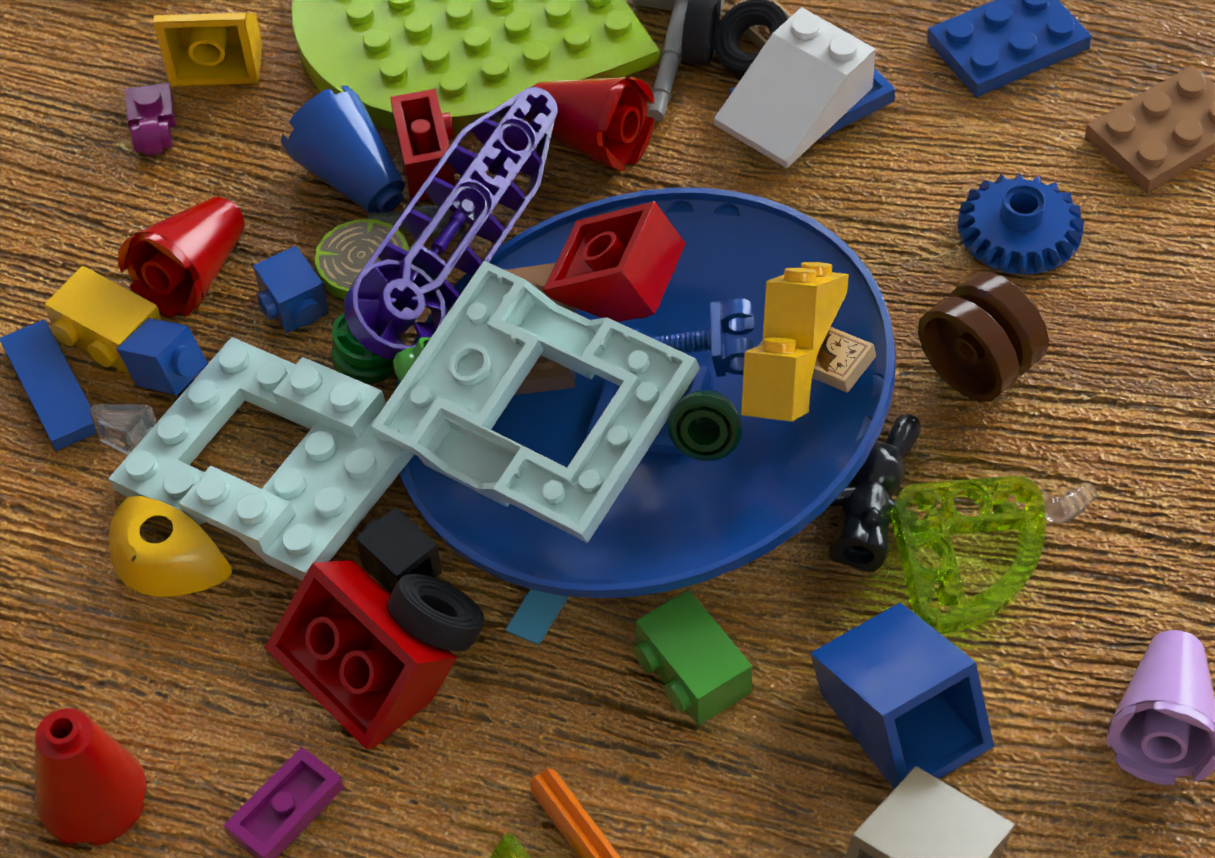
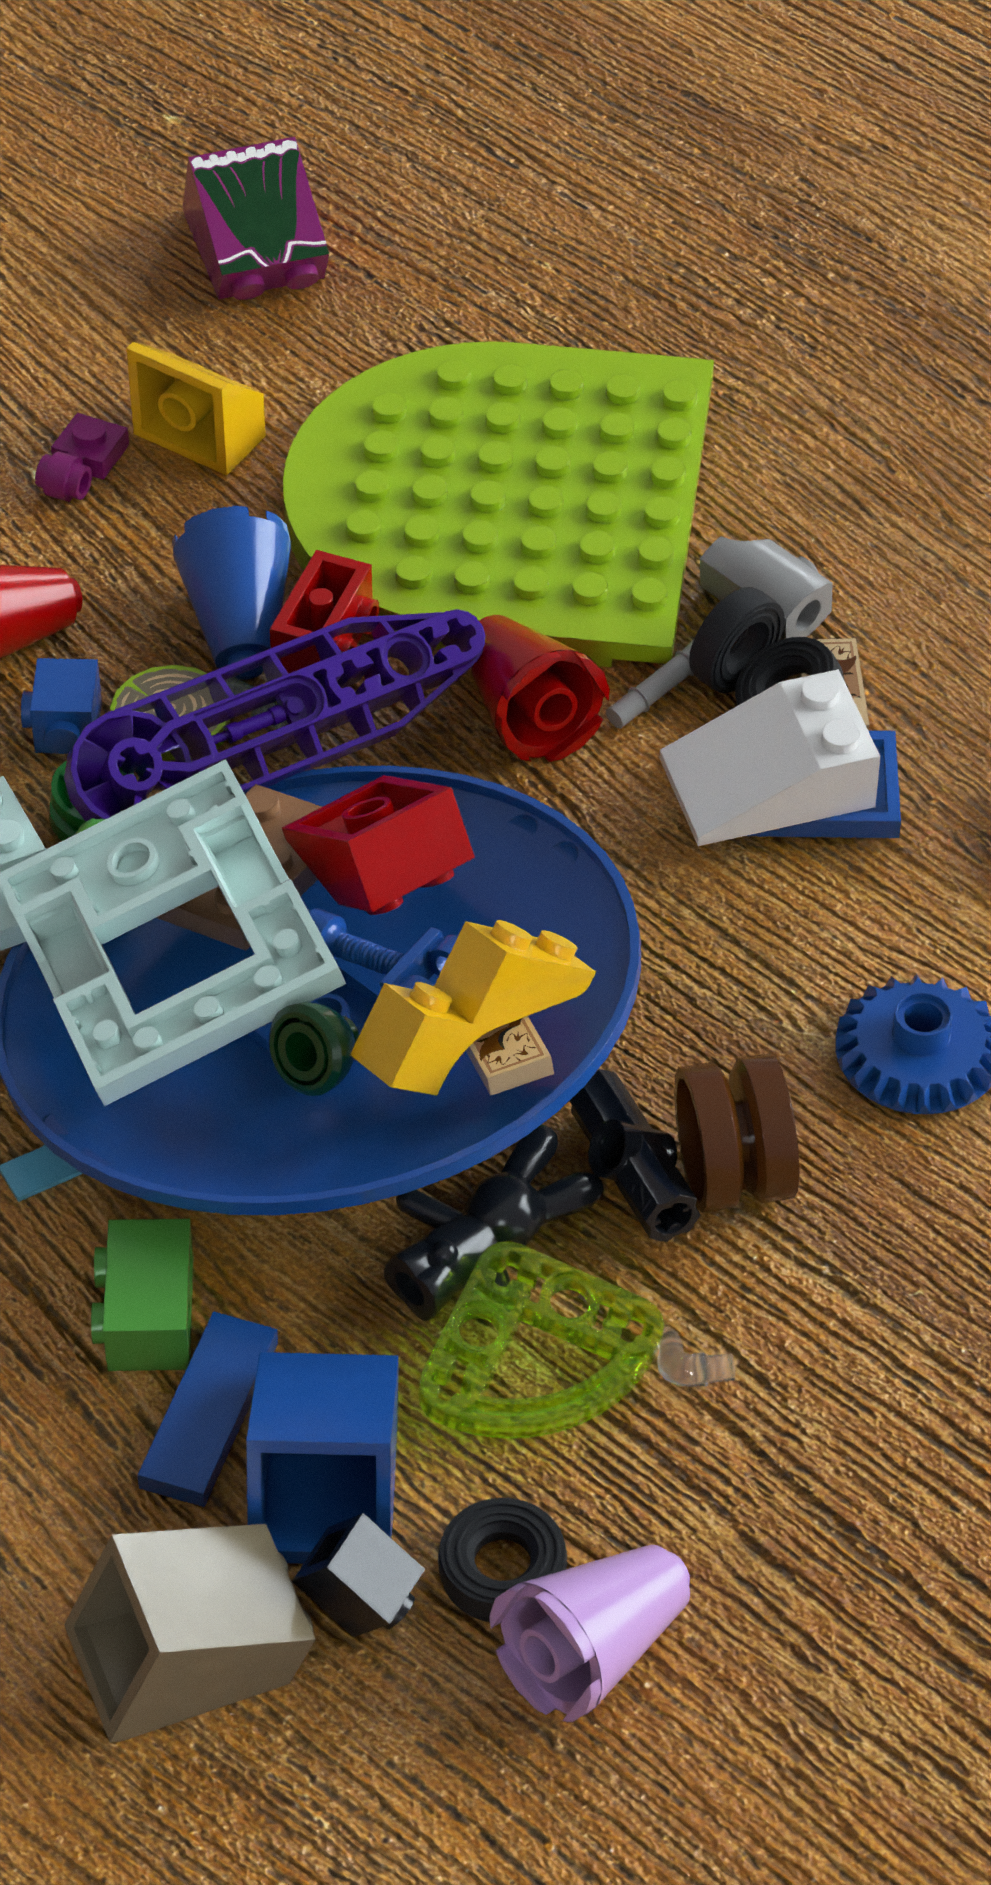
camera: 30 degrees right, 5 degrees down
(793, 713) = (206, 1410): none -> blue tile
(947, 396) = (634, 1157): none -> black piece
(999, 764) = (359, 1576): none -> brick
(1060, 730) = (489, 1522): none -> black tyre

